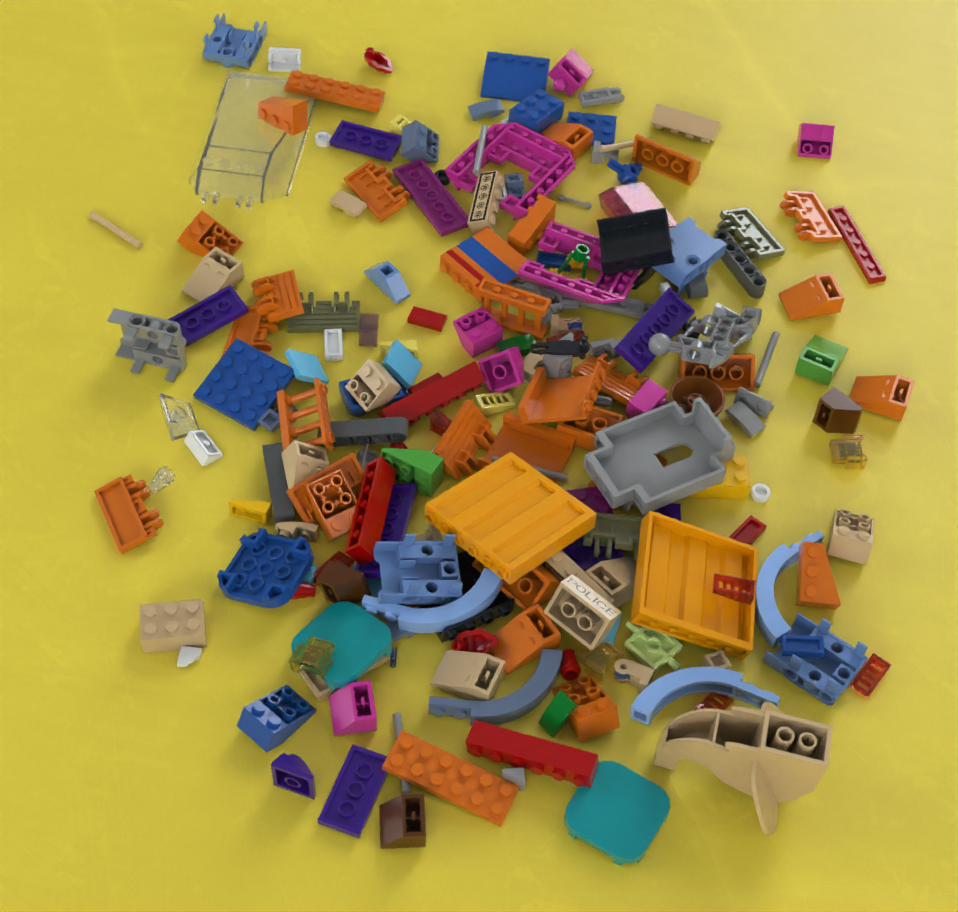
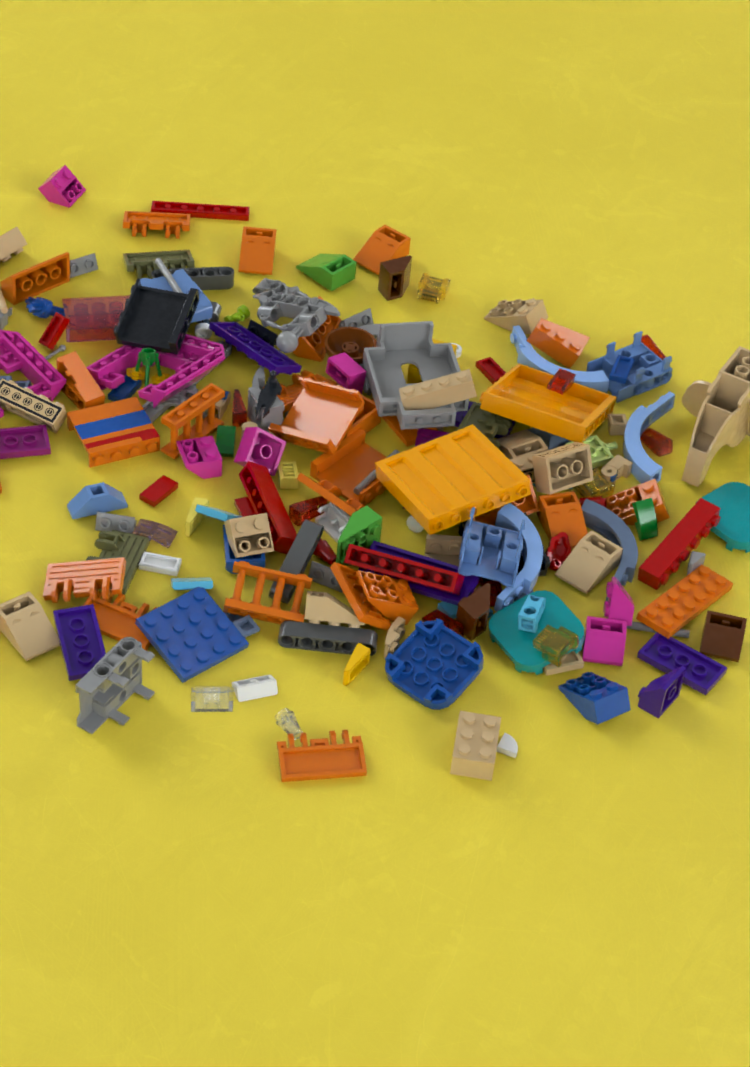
camera: 75 degrees left, 10 degrees down
(350, 627) = (531, 613): none -> medium azure leg
(369, 299) = (111, 522): none -> light grey hinge
(404, 707) = (620, 604): none -> dark pink slope
(596, 189) = (54, 331): none -> red tile
(628, 472) = (438, 391): none -> tan brick
(700, 236) = (167, 275): none -> light grey bar
(702, 308) = (241, 314): none -> lime piece
(709, 184) = (83, 265): none -> light grey hinge

